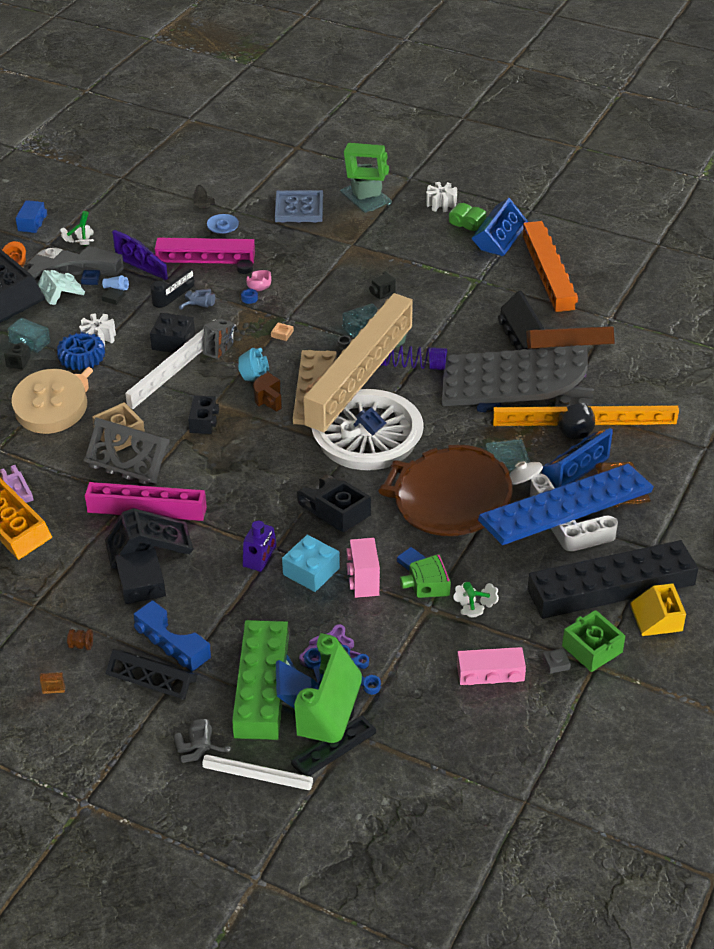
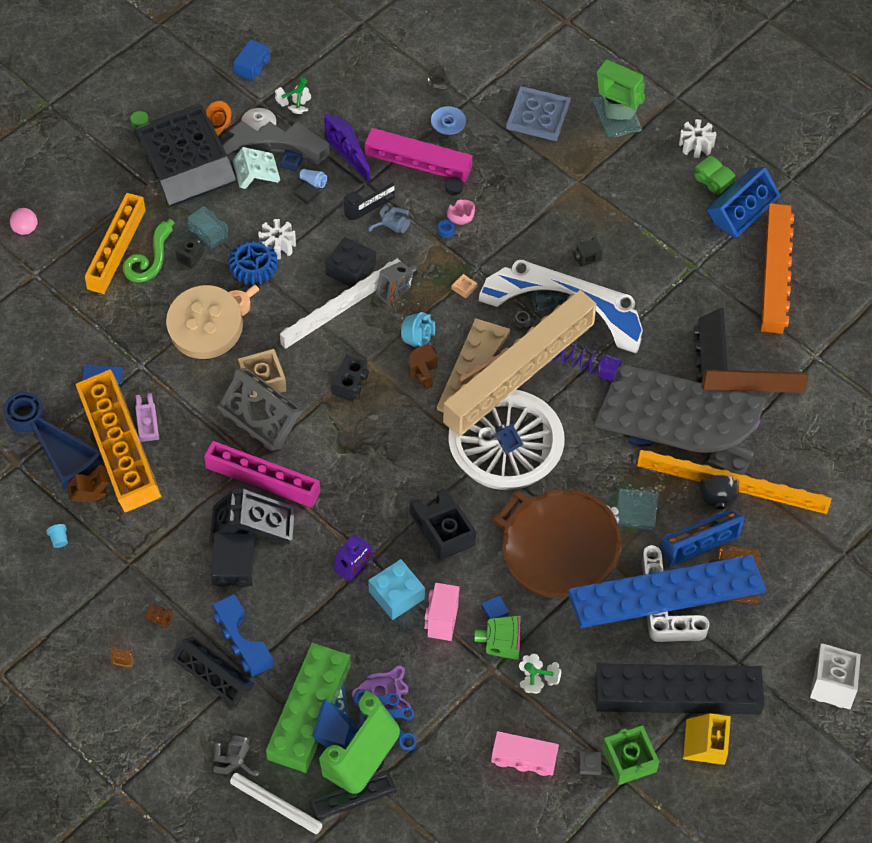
camera: 15 degrees right, 15 degrees up
(320, 319) = (509, 283): none -> panel
(525, 471) = (642, 538): white dish -> none

